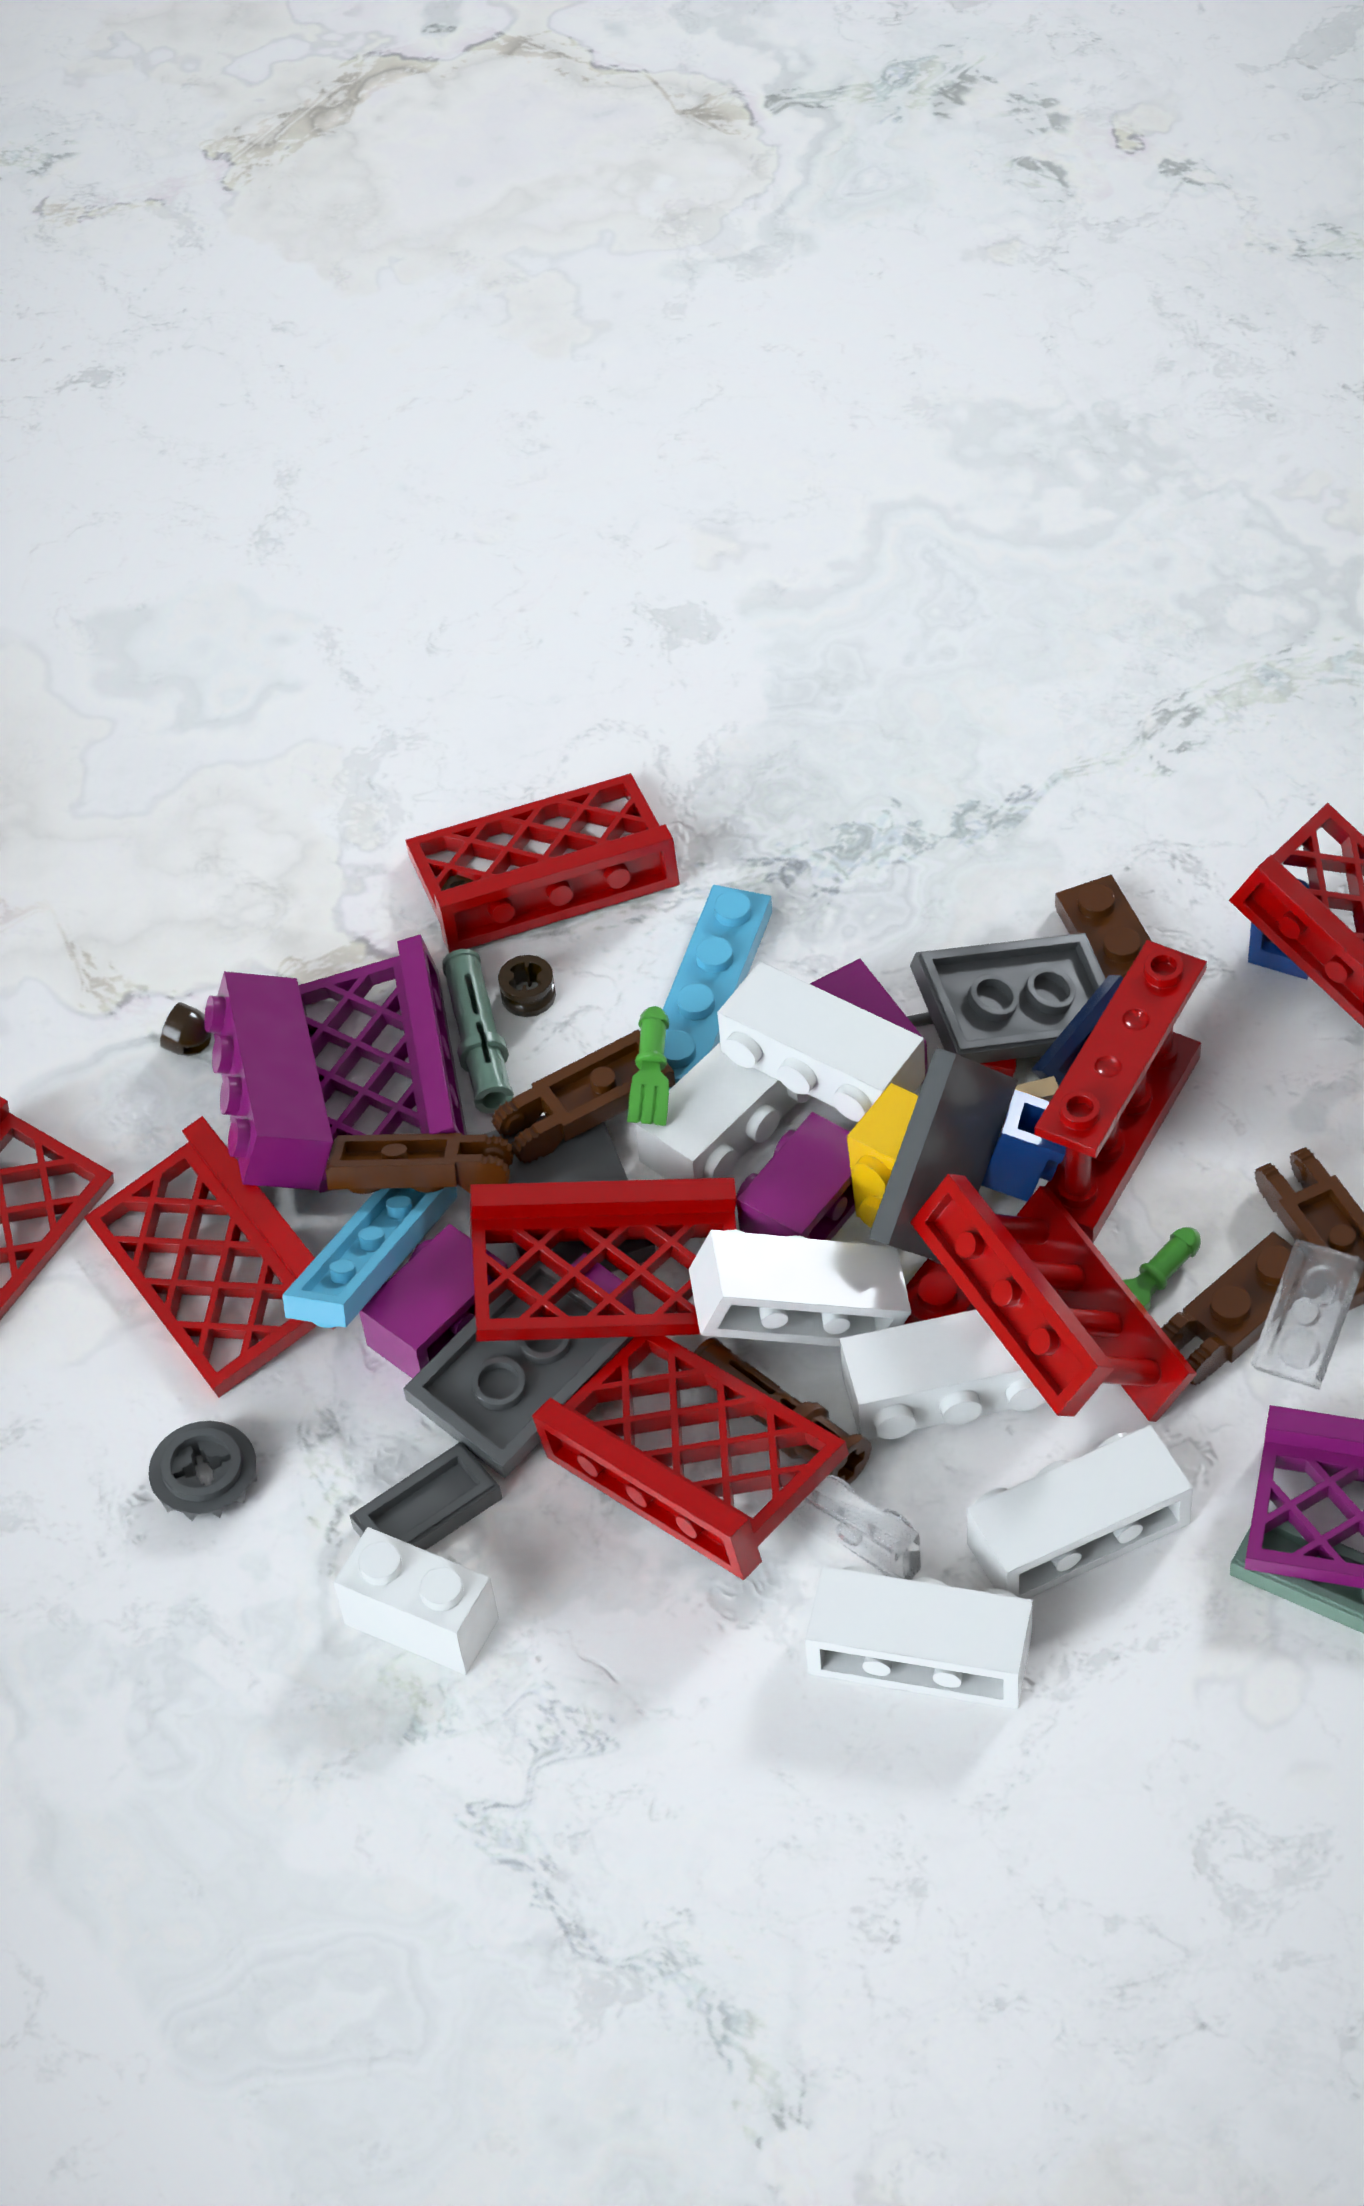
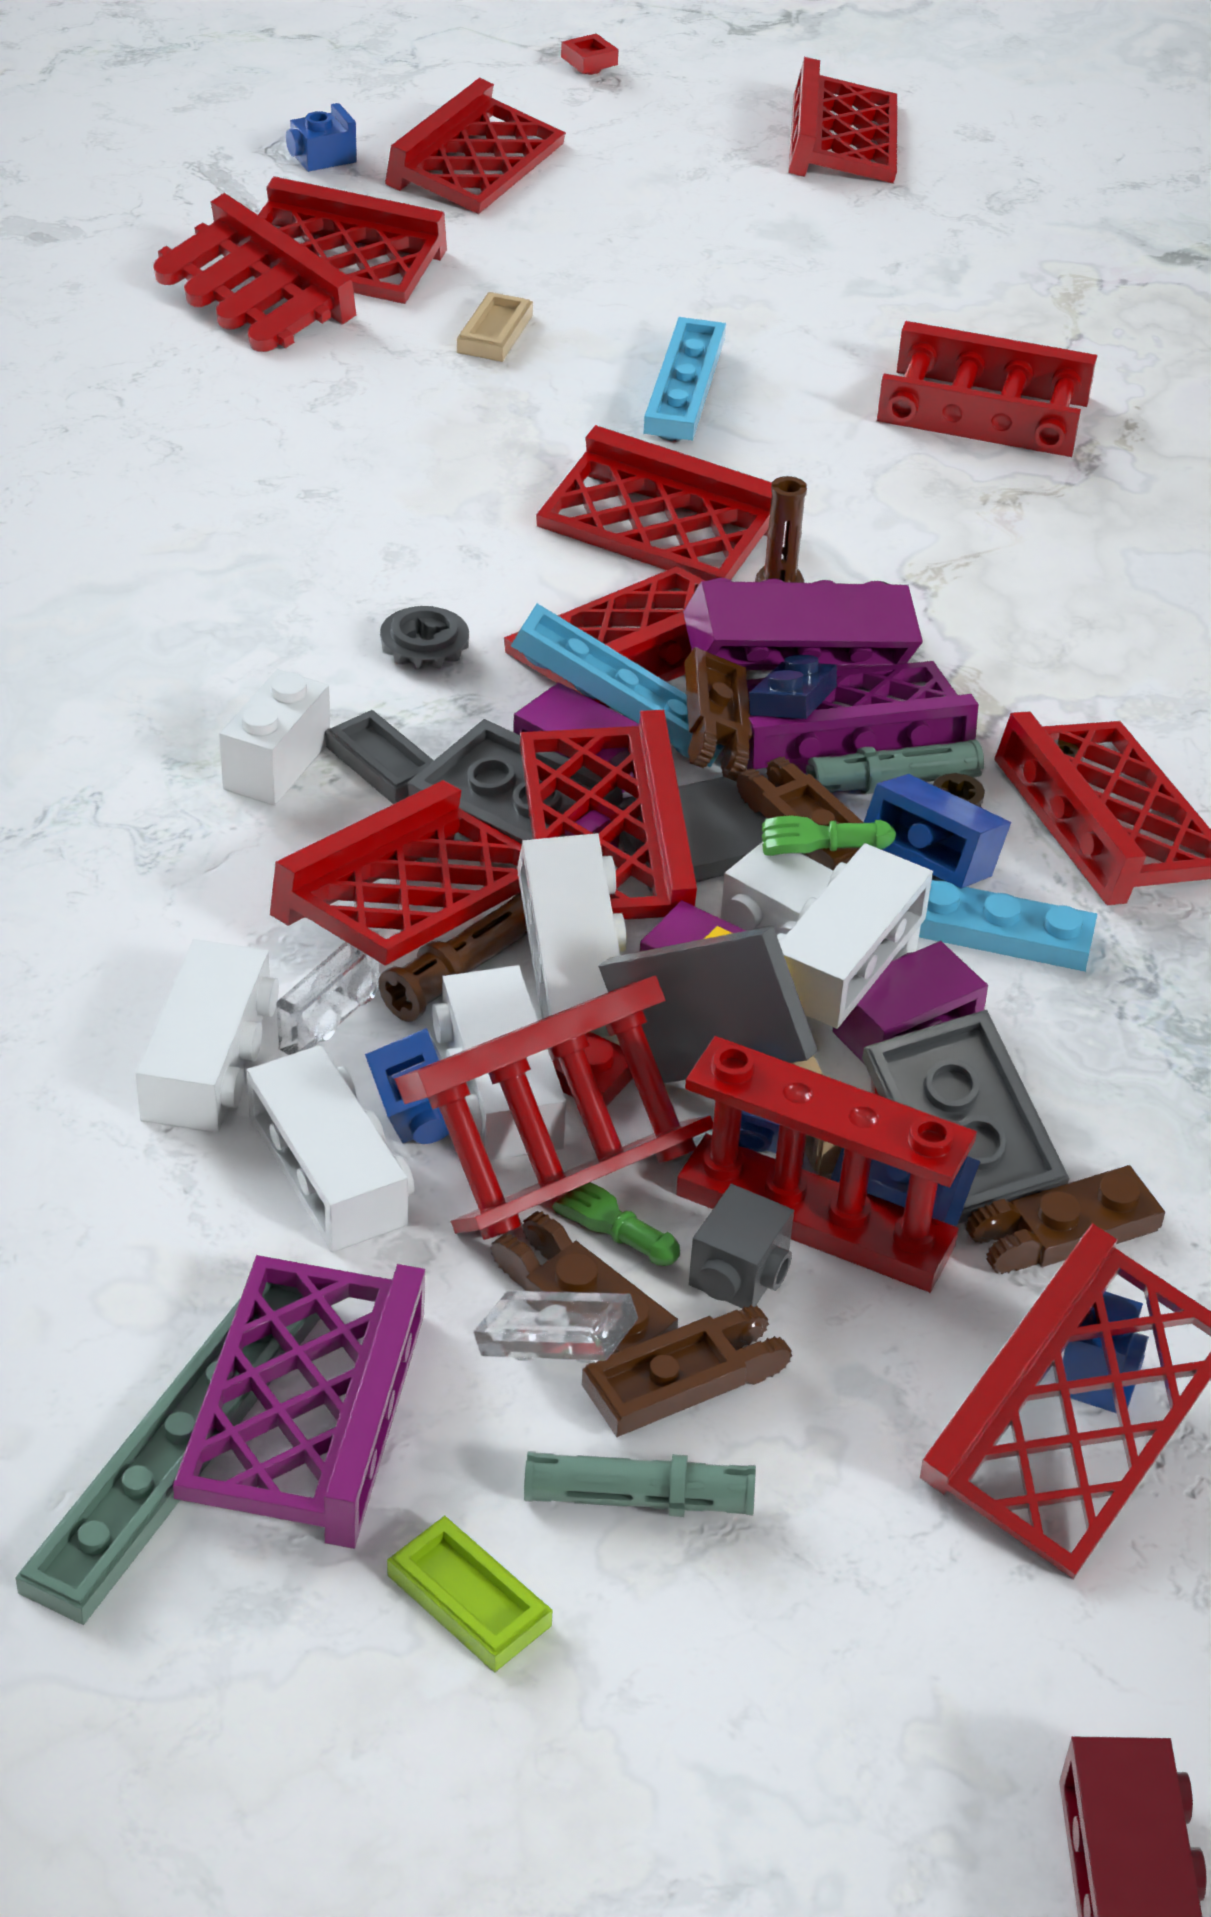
camera: 80 degrees right, 10 degrees down
(174, 1096) = (787, 507): none -> reddish brown pin
(381, 1094) = (793, 688): none -> dark blue plate
(603, 992) = (939, 829): none -> blue brick
(1013, 1419) = (416, 1118): none -> blue brick
(1189, 1178) = (742, 1248): none -> dark grey brick

